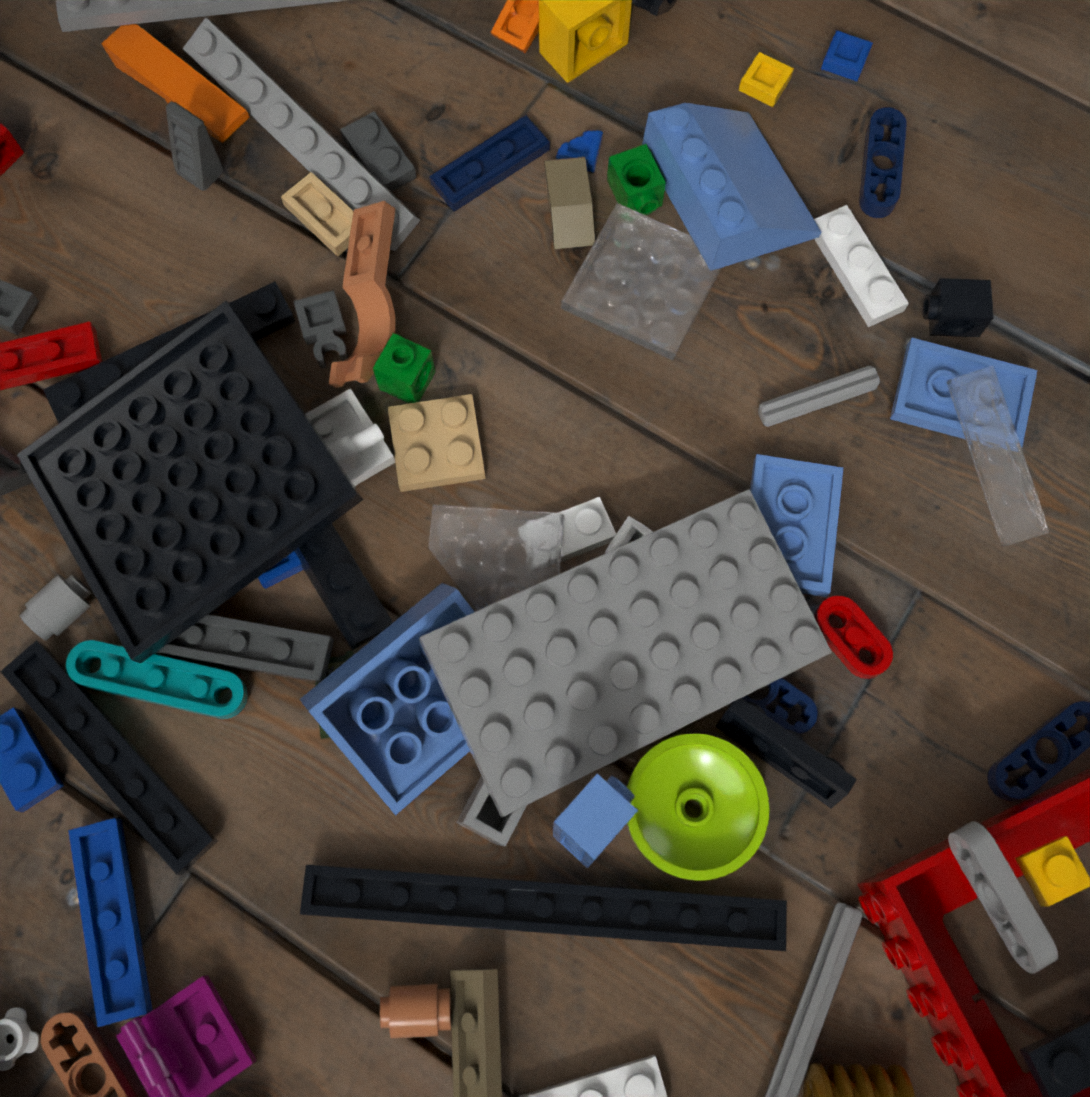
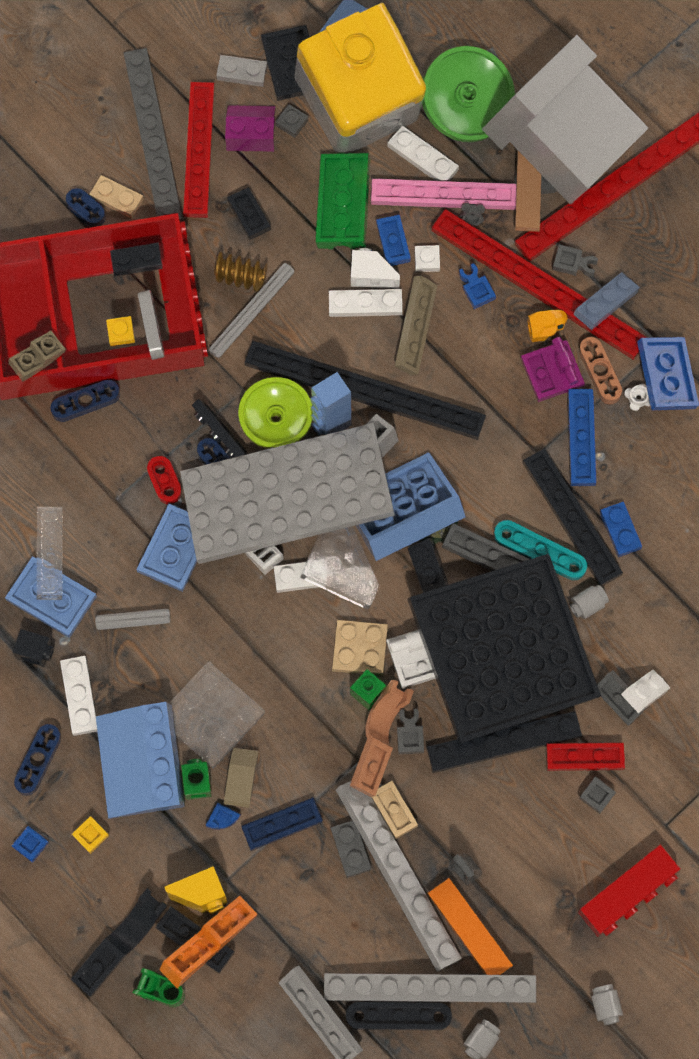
camera: 165 degrees left, 0 degrees up
(416, 1011) = (438, 359): nougat brick -> none

